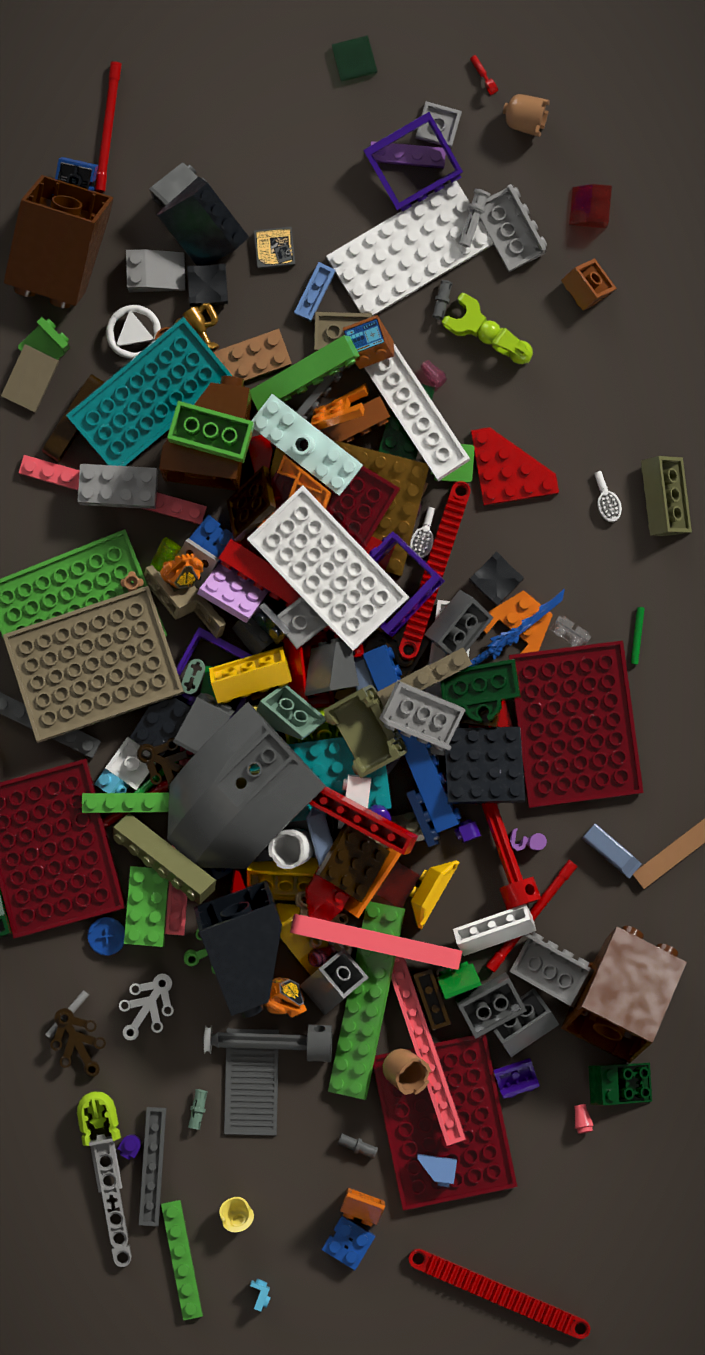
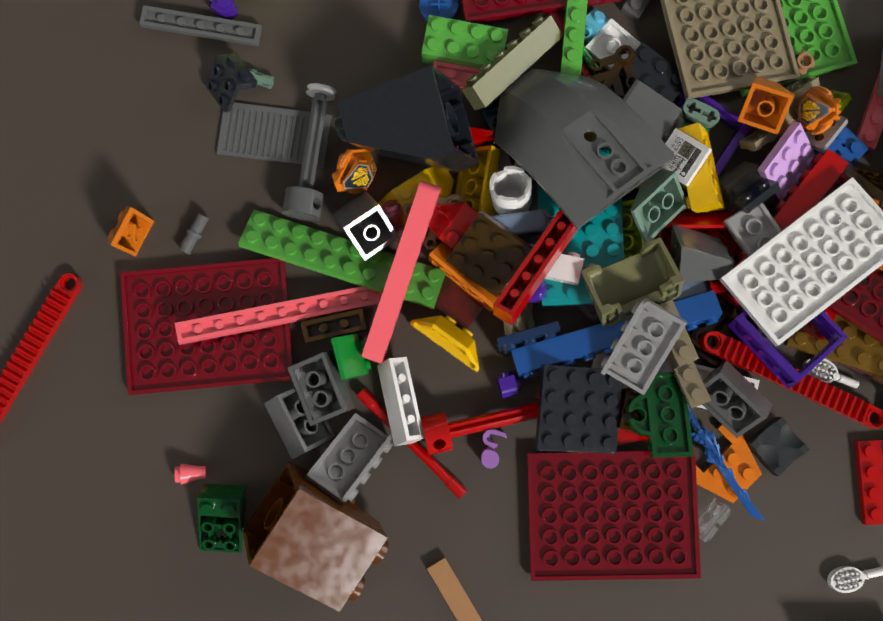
camera: 90 degrees right, 0 degrees up
(149, 1004) = (364, 39): white plant -> none
(182, 1260) = (104, 46): bright green plate -> none
(184, 620) = (766, 105): none -> orange slope
(206, 1129) = (227, 78): none -> black bracket
(236, 1214) = (137, 100): light yellow helmet -> none
(241, 690) = (689, 156): none -> white tile
(263, 1299) = (62, 122): medium azure bracket -> none
(348, 1242) = (95, 213): blue piece -> none
(406, 1071) = (259, 288): medium nougat cylinder -> none
(439, 1168) = (156, 313): medium blue slope -> none
(516, 1078) = (240, 407): dark purple bracket -> none
(611, 850) = (471, 538): sand blue piece -> none
(637, 635) = (701, 593): green bar -> none

